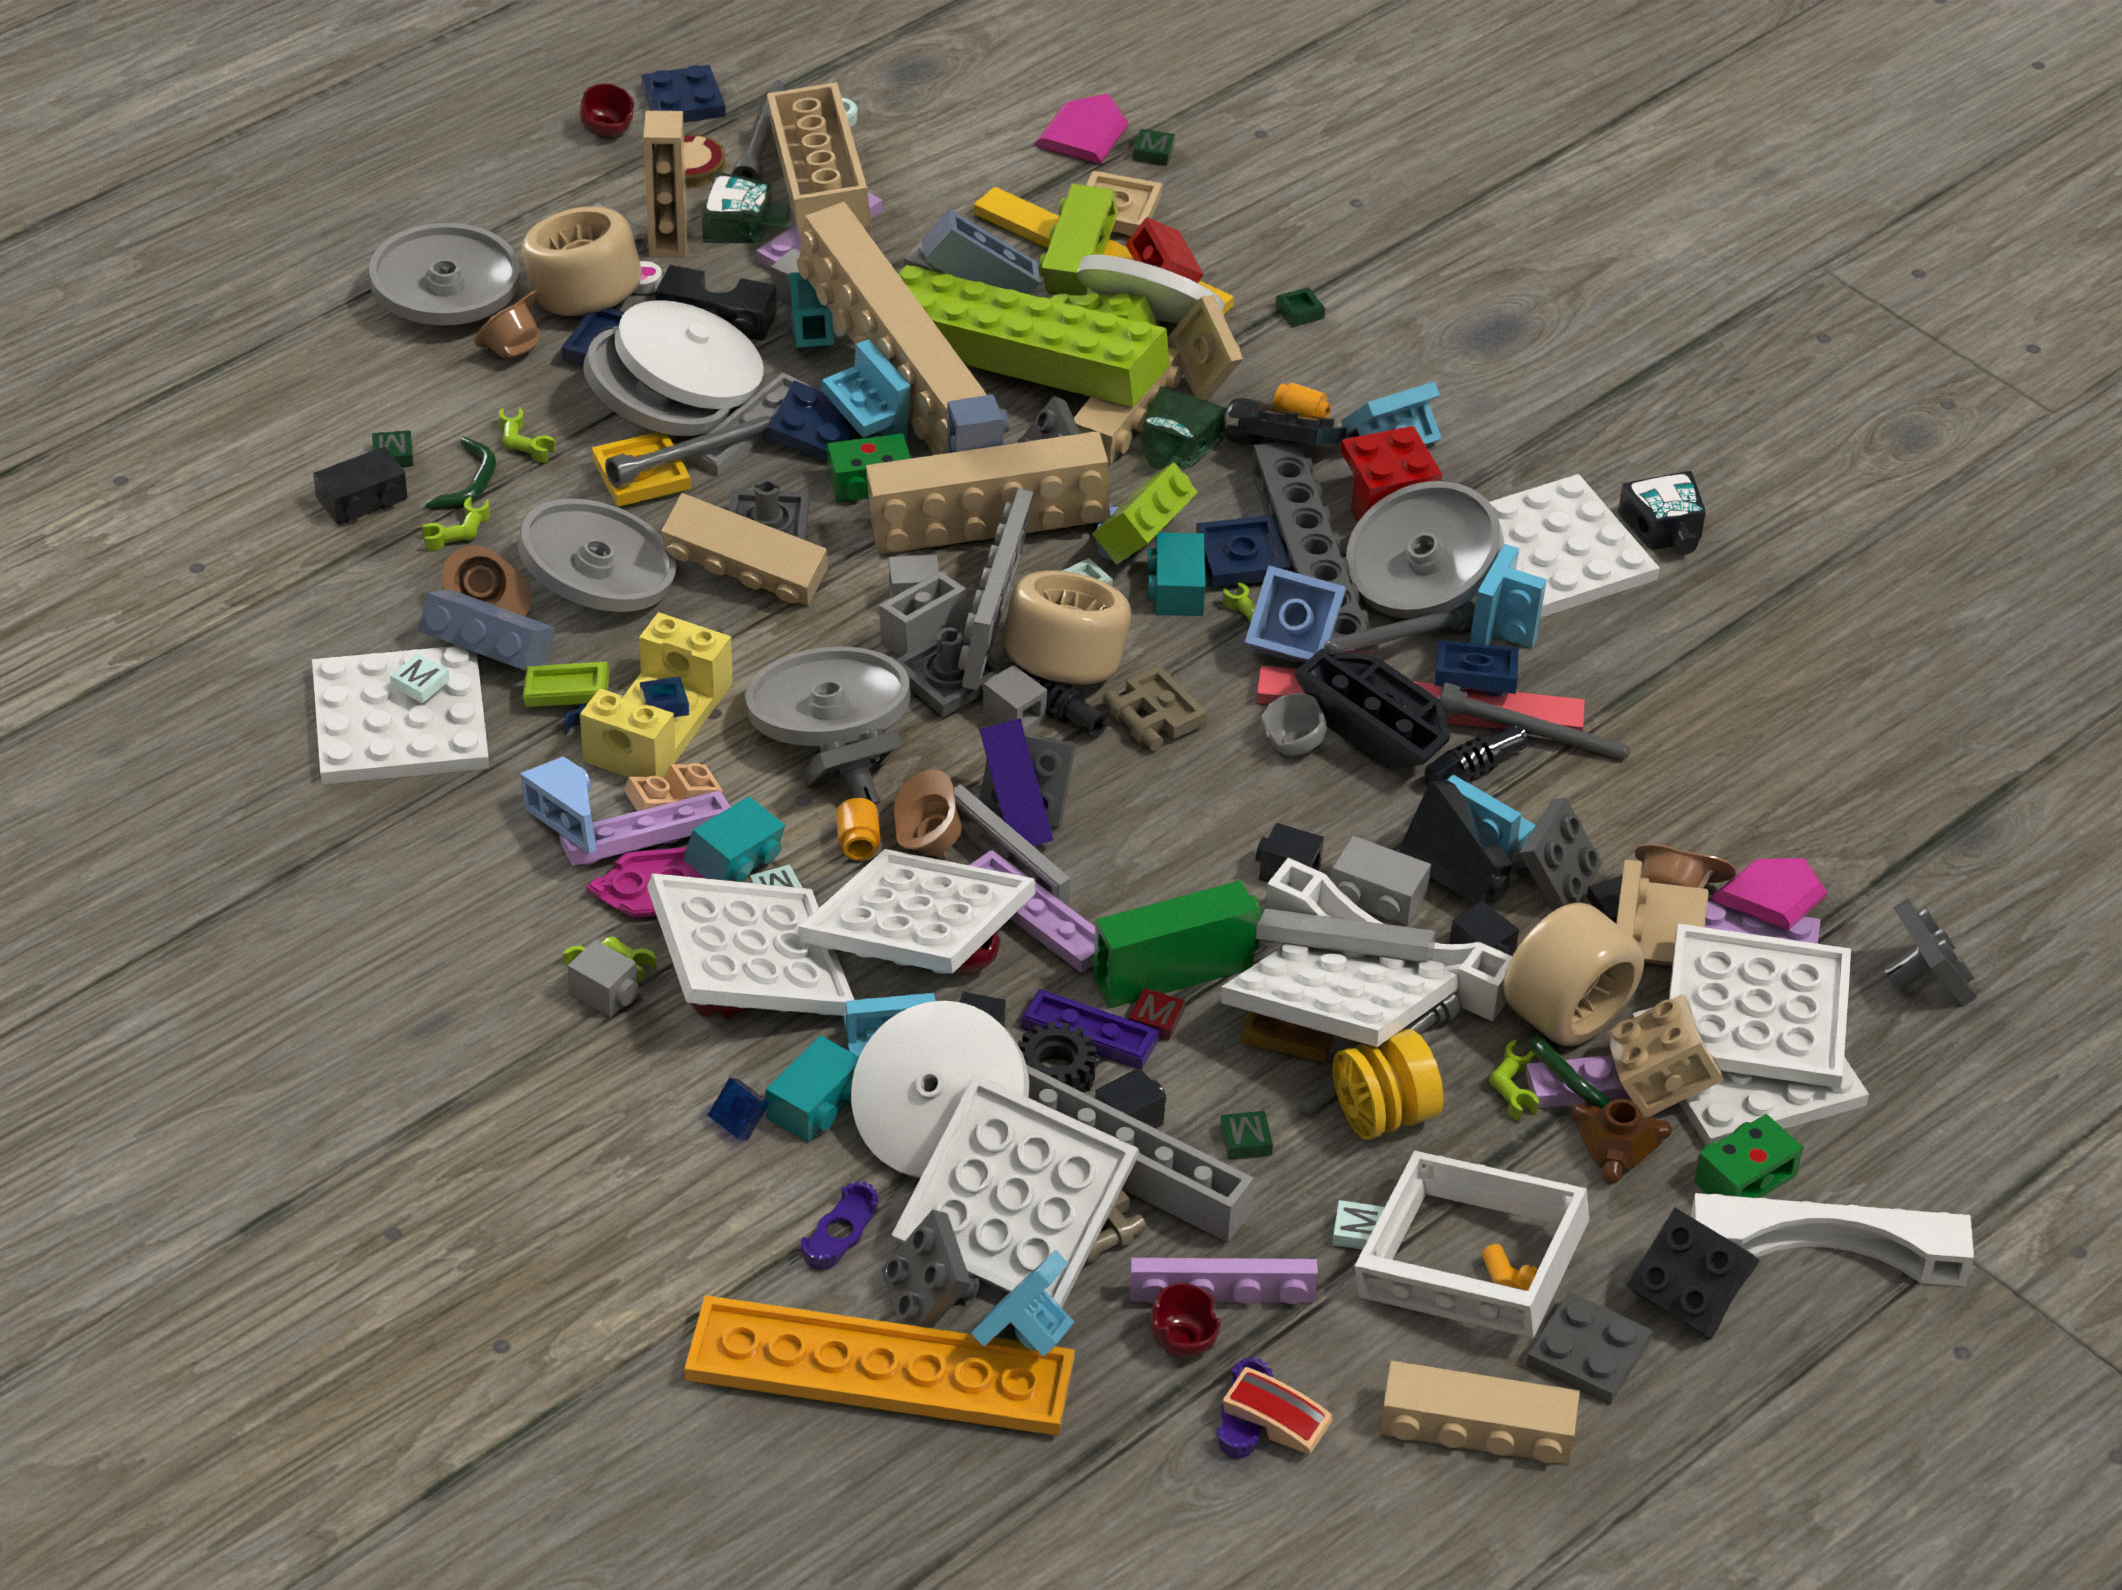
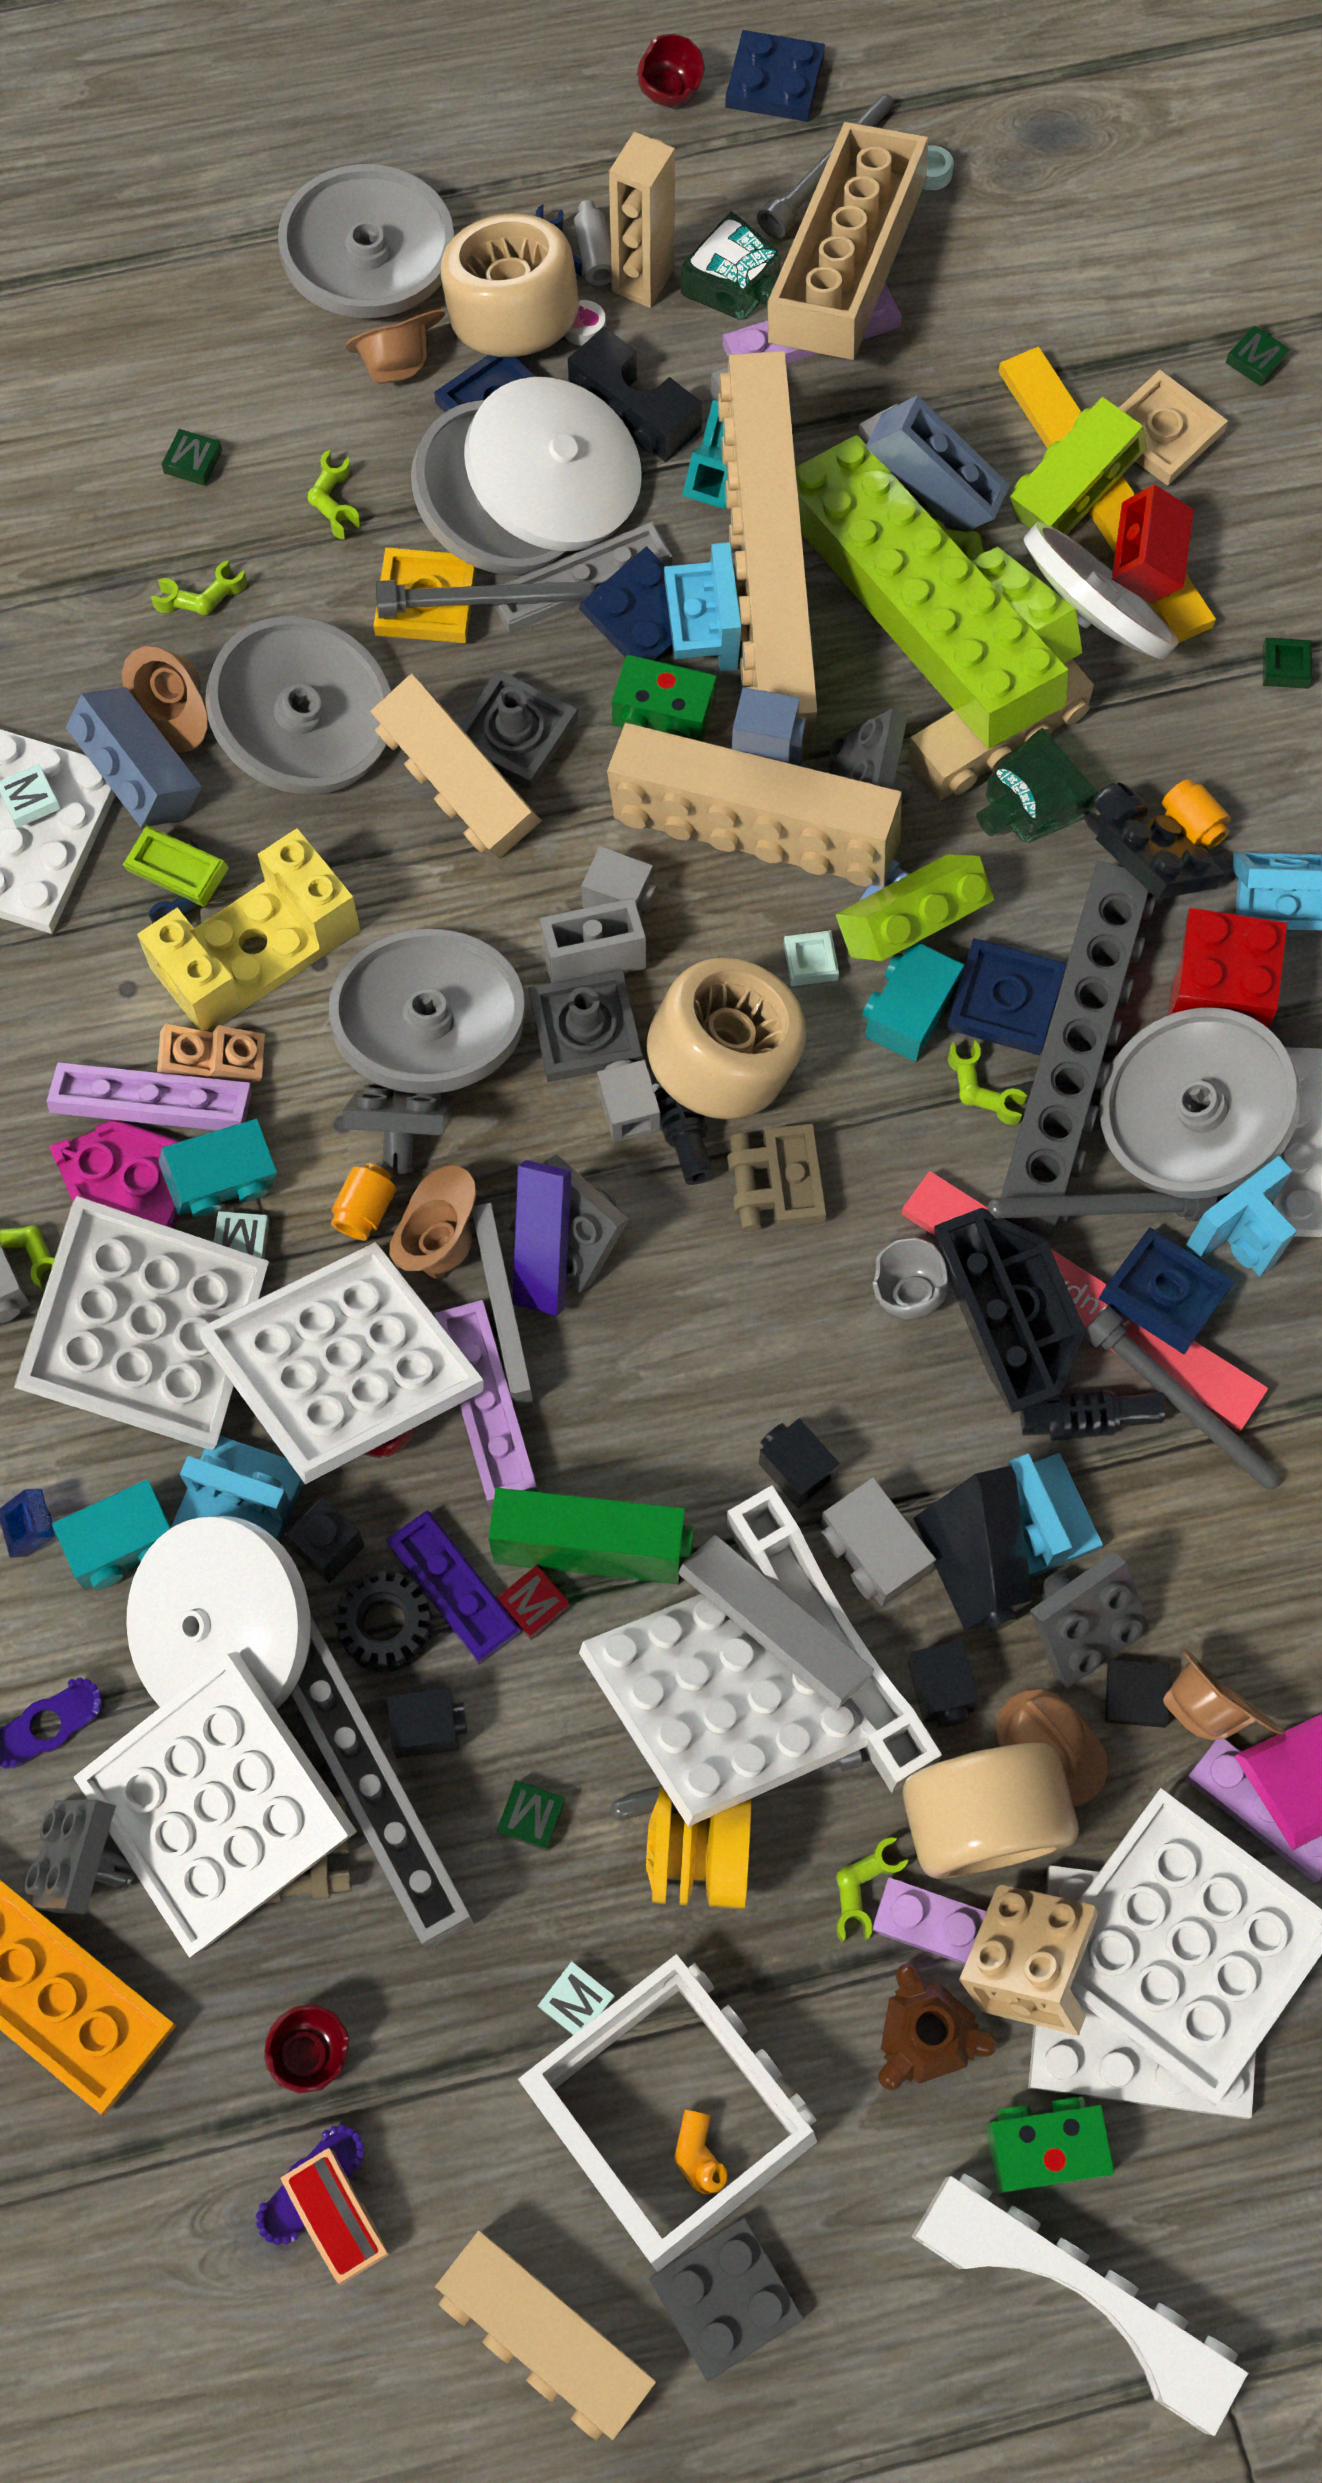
camera: 30 degrees right, 25 degrees up
(360, 485) = (125, 498): black brick -> none
(479, 481) = (258, 537): dark green animal -> none
(560, 799) = (79, 1032): light blue slope -> none
(666, 695) = (251, 939): clear blue plate -> none
(702, 159) = (728, 173): tile -> none
(994, 588) = (671, 954): light grey plate -> none
(1033, 1312) = (139, 1966): medium azure bracket -> none
(1085, 128) = (1196, 297): dark pink tile -> none
(1205, 347) = (1119, 698): tan plate -> none
(1227, 1278) = (401, 2023): lavender plate -> none
(1294, 615) = (989, 1136): light blue slope -> none
(1566, 1073) = (913, 1923): dark green animal -> none
(1654, 910) = (1152, 1750): tan bracket -> none
(1692, 1272) = (881, 2284): black brick -> none

